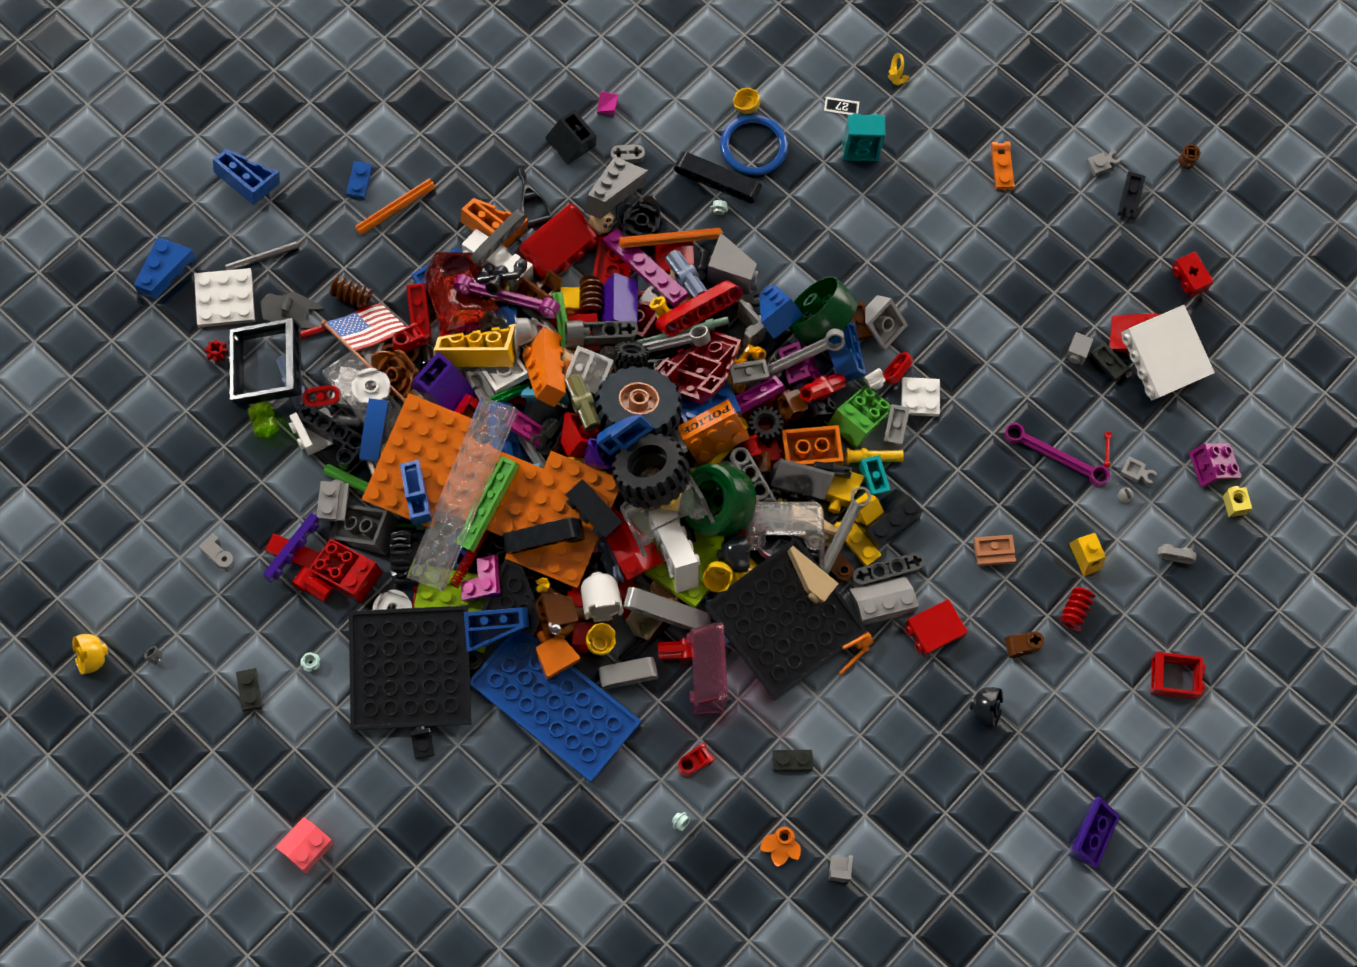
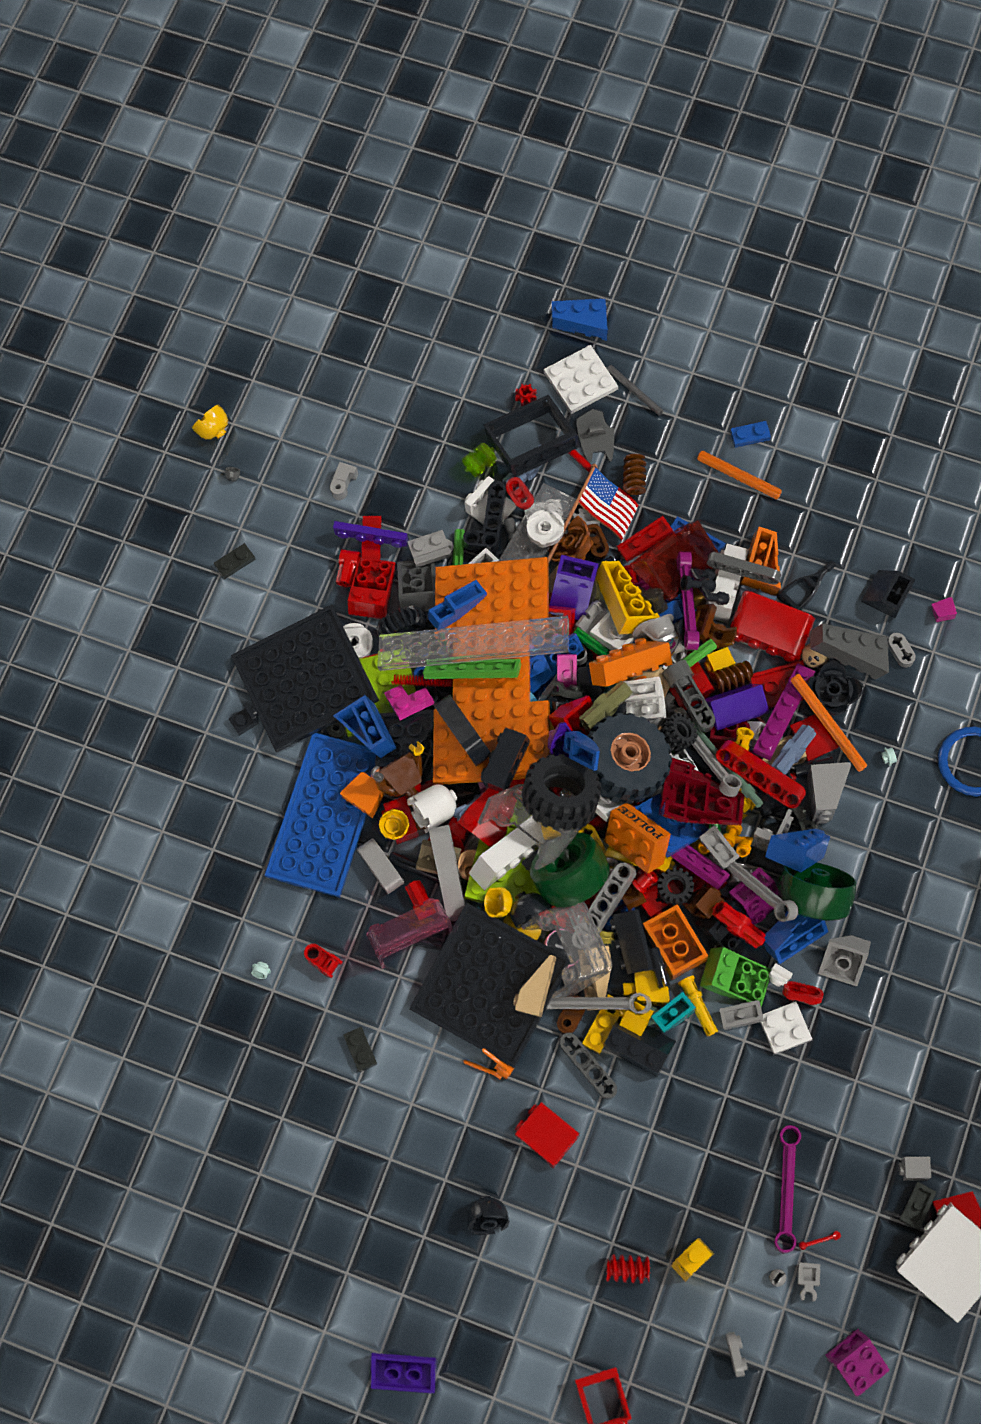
camera: 80 degrees right, 0 degrees up
(244, 176) = (702, 341): blue wedge -> none
(305, 845) = (115, 665): coral slope -> none
(310, 657) = (276, 593): light aqua plate -> none
(374, 430) = (504, 547): blue slope -> none
(412, 336) = (612, 541): red piece -> none
(717, 177) = (920, 741): black beam -> none
(781, 849) = (271, 1070): orange plate -> none
(840, 868) = (272, 1135): light grey panel -> none
(859, 320) = (840, 929): reddish brown plate -> none
(884, 600) = (554, 1072): light grey slope -> none
(994, 550) = (654, 1163): nougat plate -> none
(1020, 645) = (566, 1225): reddish brown piece -> none
(1237, 509) = (815, 1400): light yellow brick -> none

